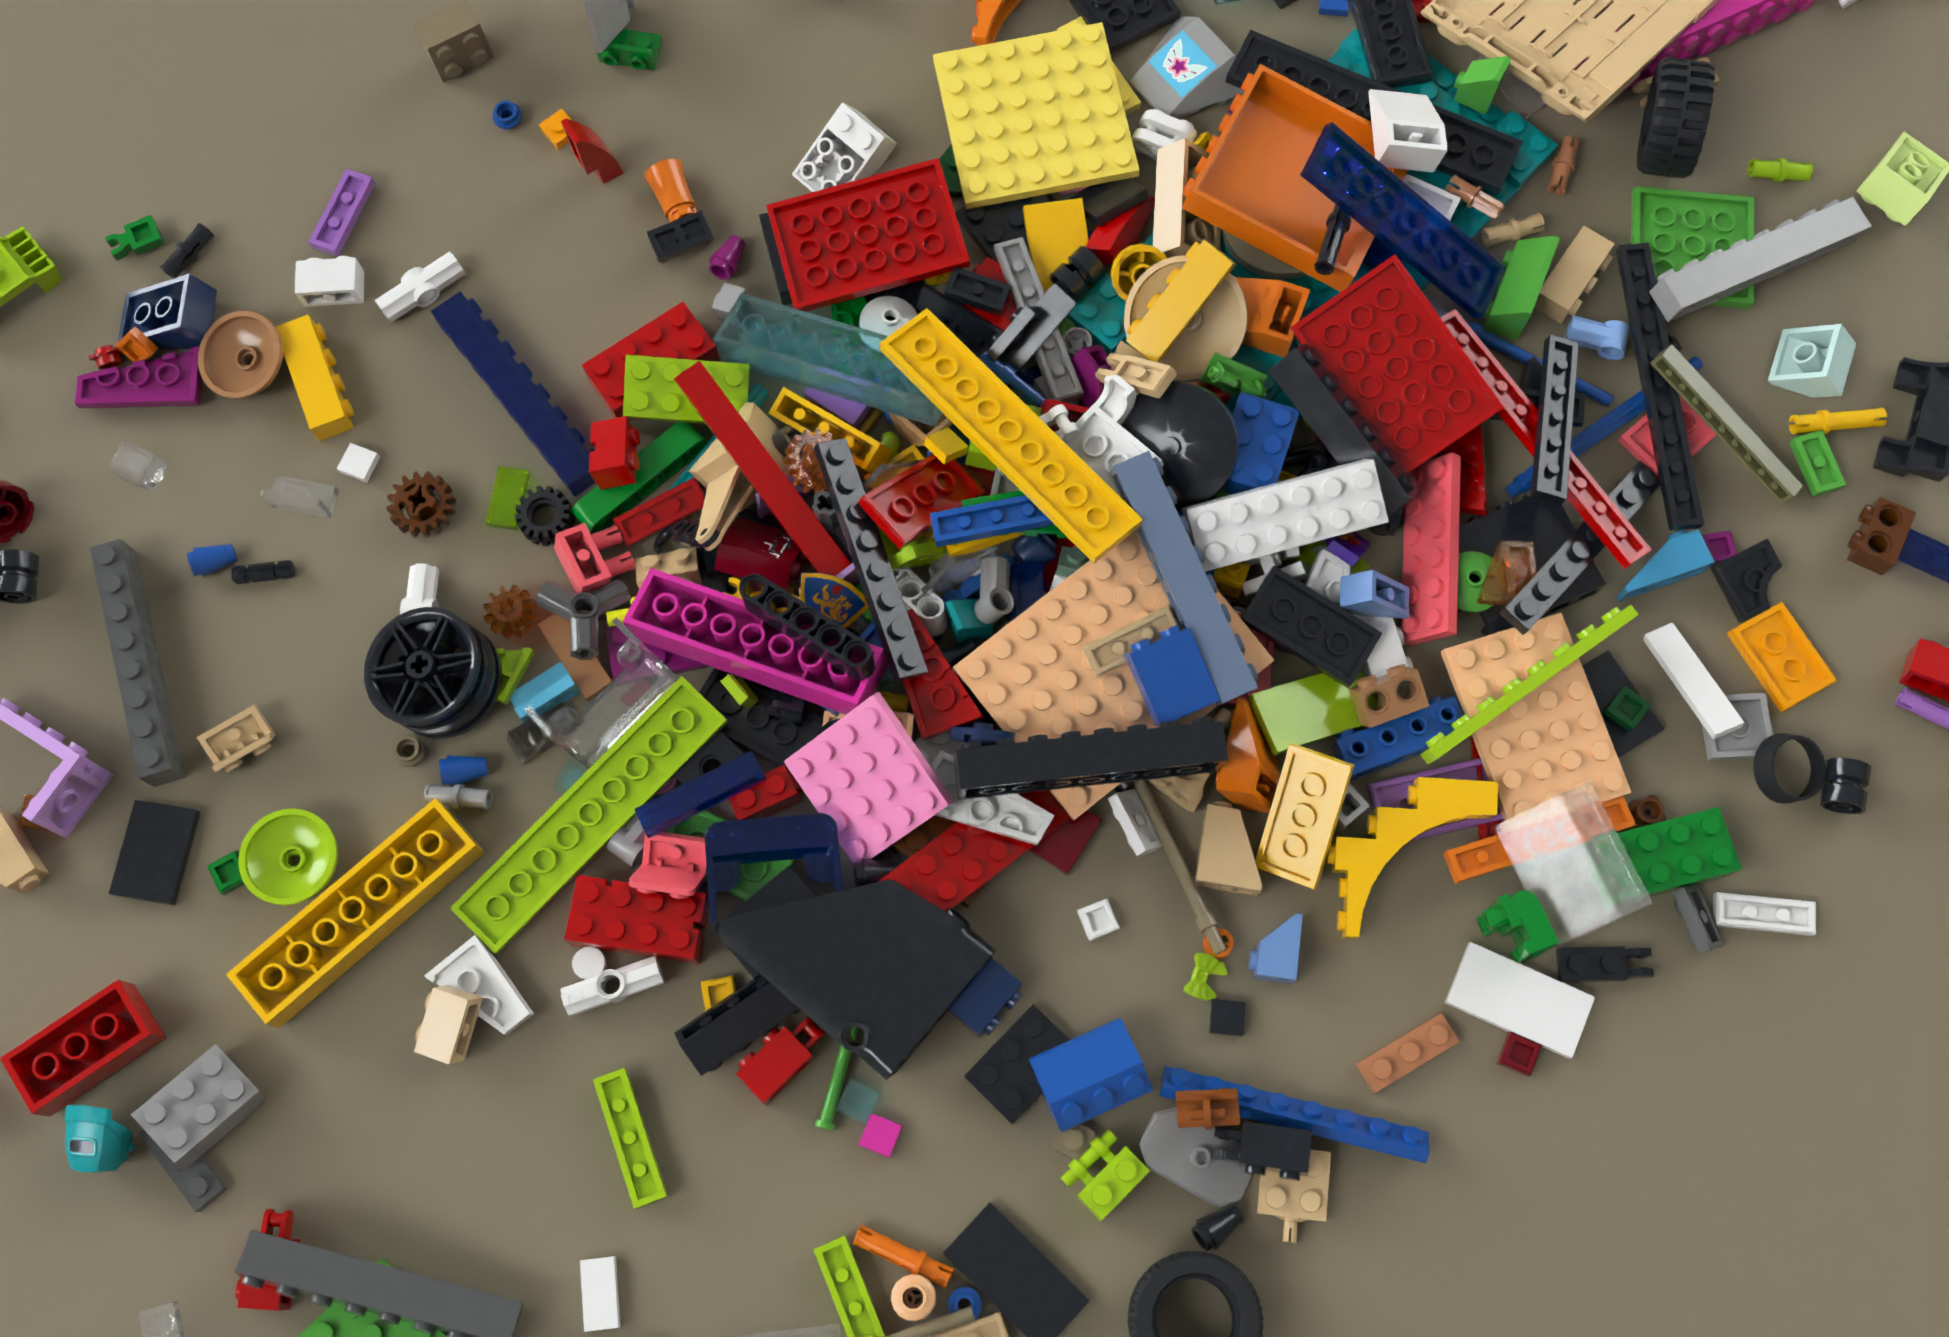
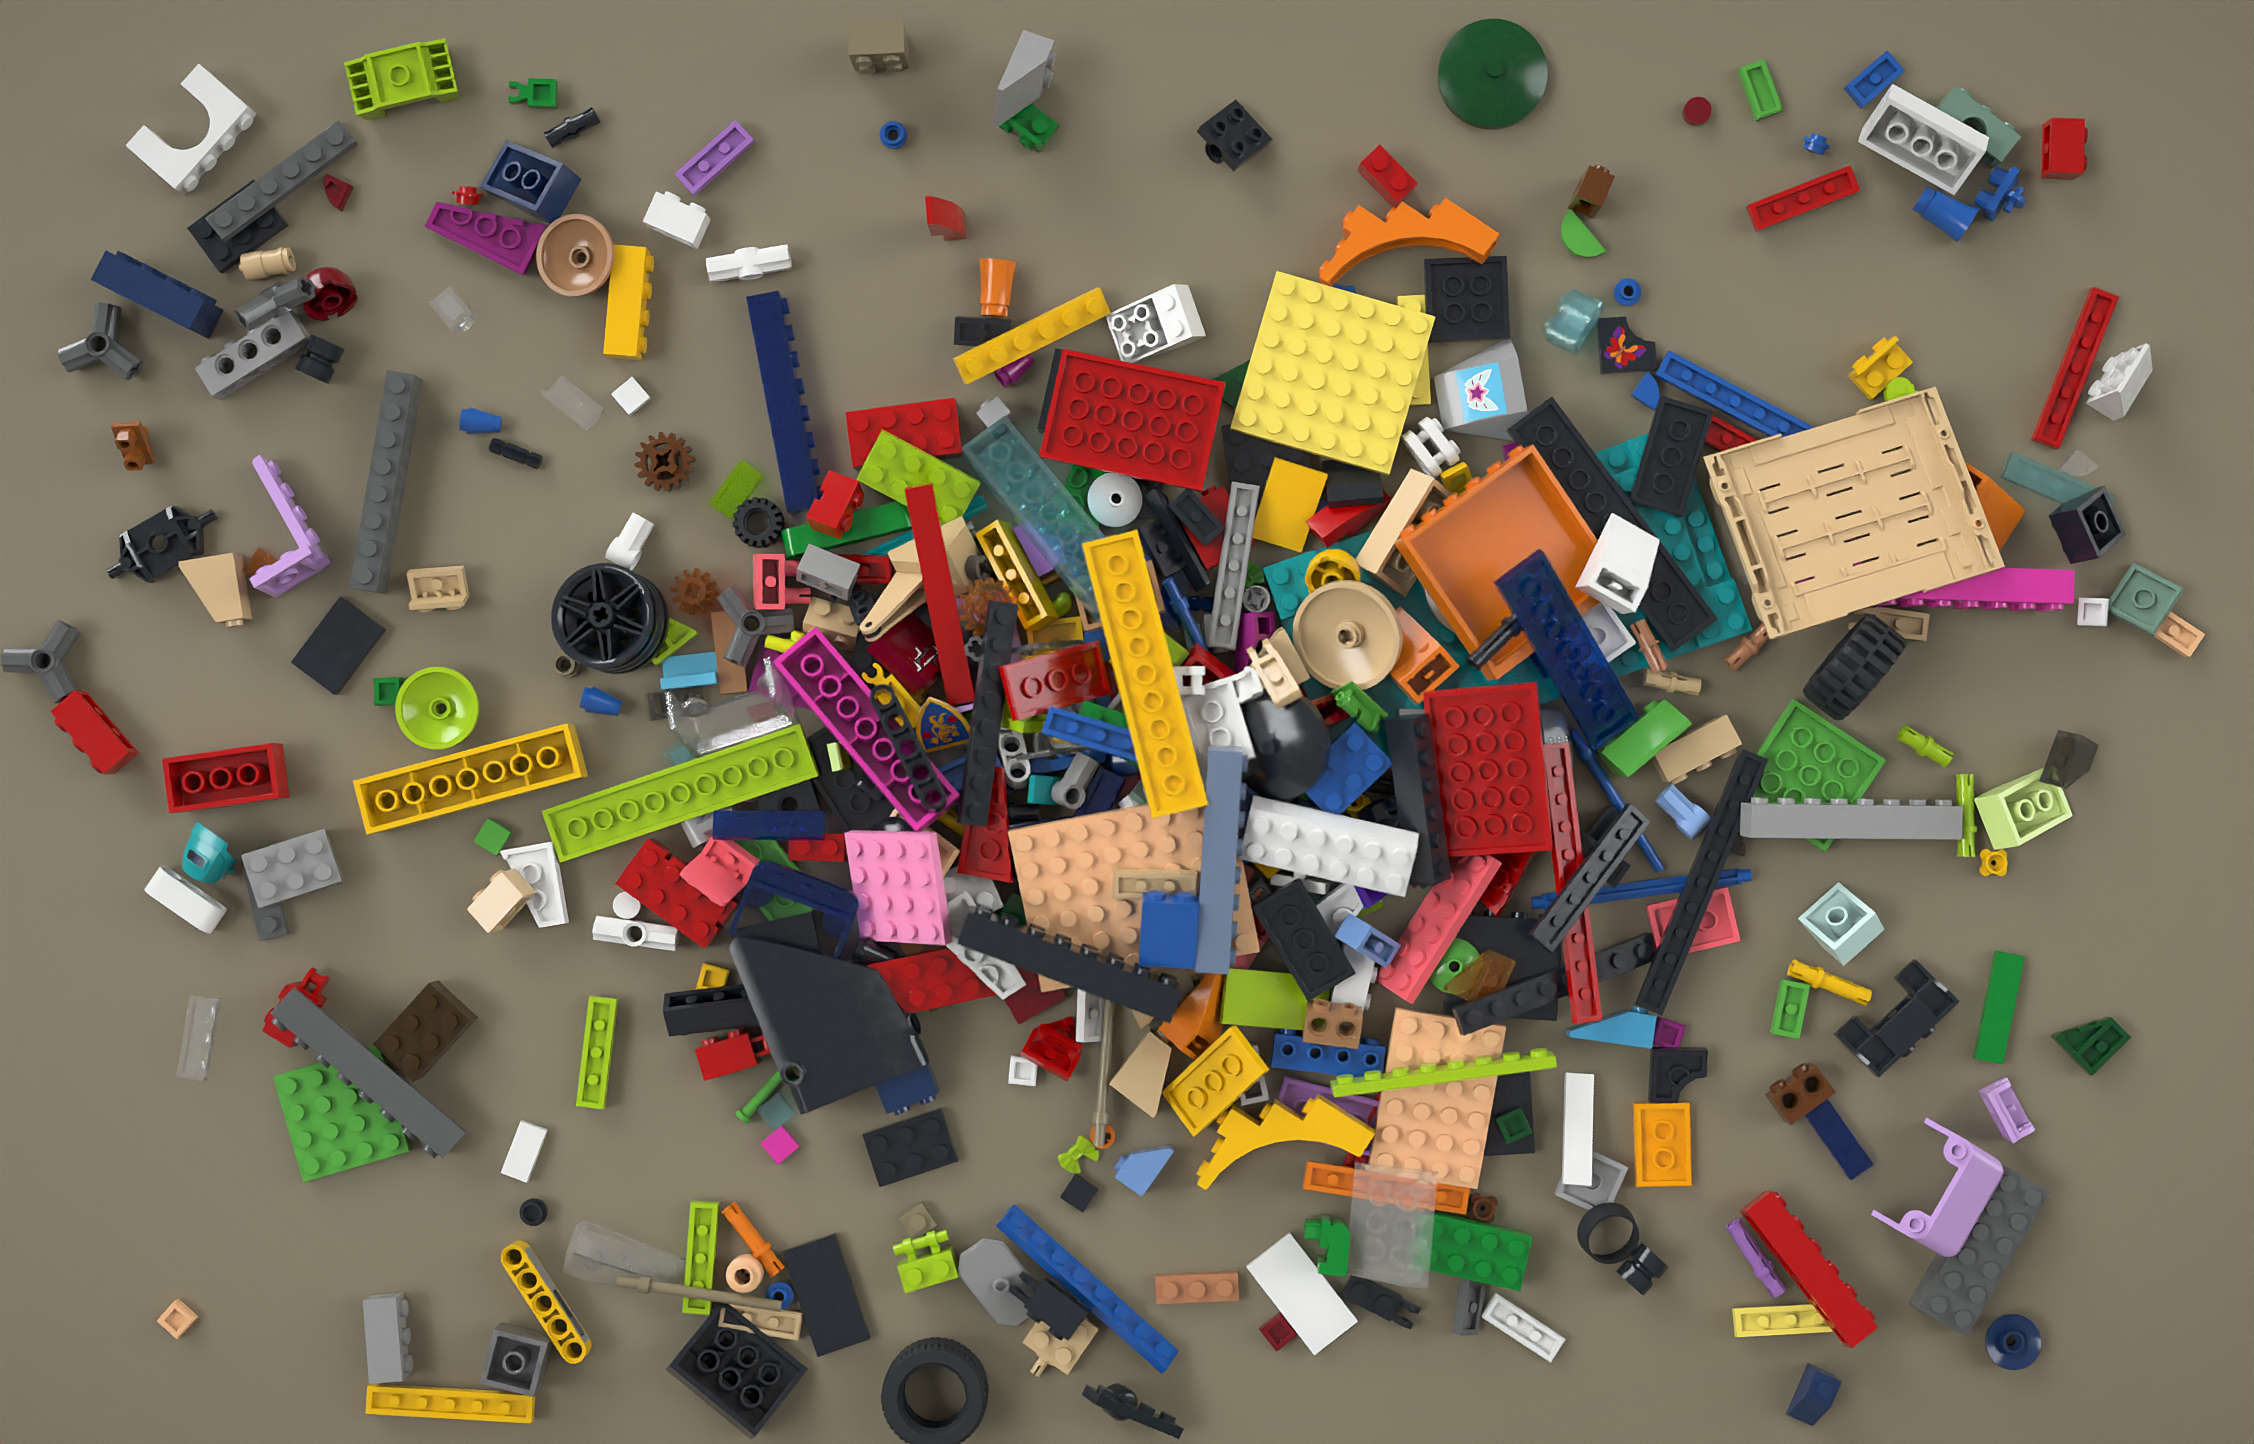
camera: 30 degrees right, 15 degrees up
(91, 1208) = (185, 899): none -> white beam
(136, 345) = (494, 200): orange tile -> none
(409, 966) = (493, 836): none -> bright green tile
(426, 1213) = (425, 1030): none -> dark brown brick
(459, 796) = (587, 722): light grey pin -> none
(554, 130) = (931, 170): light orange plate -> none
(637, 520) = (827, 572): none -> light grey hinge
(729, 216) = (1031, 335): none -> yellow plate
(946, 445) = (1095, 643): yellow tile -> none
(979, 733) = (1002, 898): dark blue plate -> none
(1031, 328) = (1215, 581): bracket -> none
(1082, 270) = (1297, 544): black wheel -> none
(1090, 1074) = (952, 1186): blue slope -> none
(1117, 877) = (1054, 1047): none -> red slope
(1181, 301) = (1346, 627): yellow brick -> none
(1207, 1108) = (1022, 1257): dark orange hips -> none
(1216, 1227) = (986, 1337): black cone -> none
(1404, 1220) = (1123, 1405): none -> black plate
(1481, 83) = (1713, 549): bright green slope -> none
(1726, 424) = (1733, 943): olive piece -> none
(1843, 190) = (1965, 798): none -> lime pin
(1916, 111) = (2068, 759): none -> clear smoke slope
(1916, 234) = (2000, 866): none -> yellow plate

